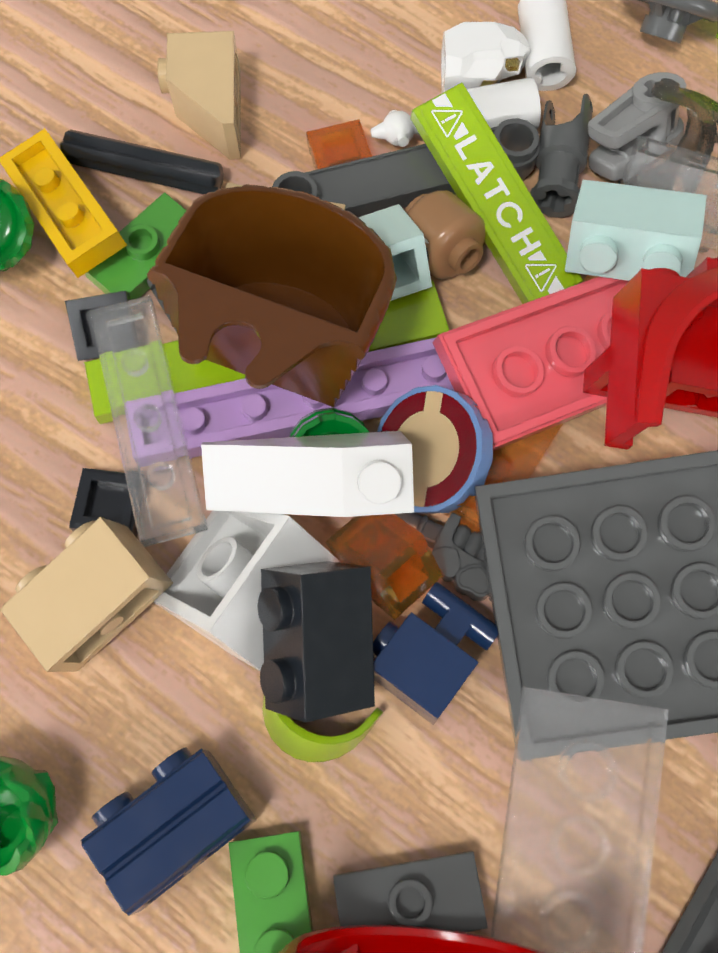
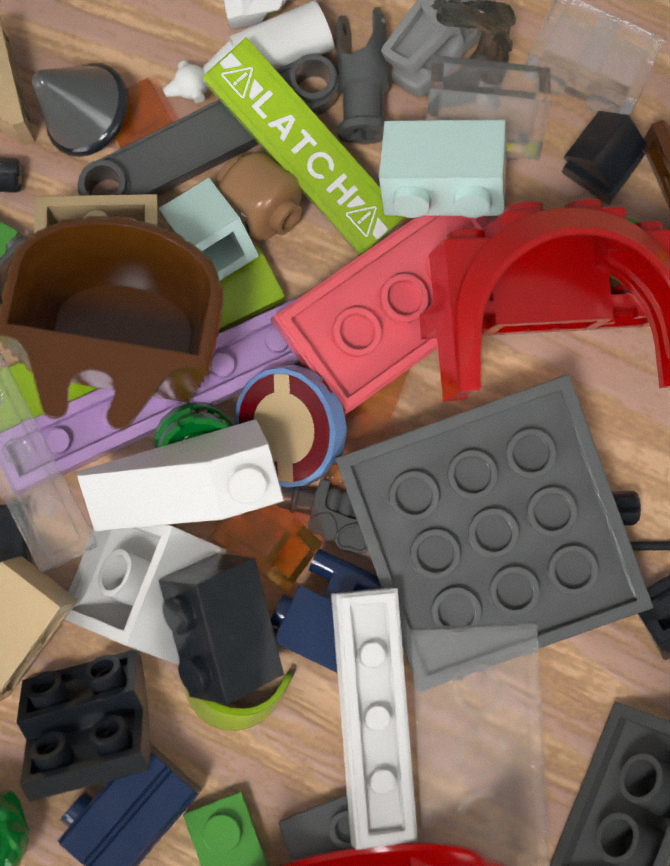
camera: 10 degrees left, 10 degrees up
(143, 718) = (84, 725): none -> black slope
(288, 125) = (81, 106): none -> dark grey hat
(466, 782) = (374, 717): none -> white tile

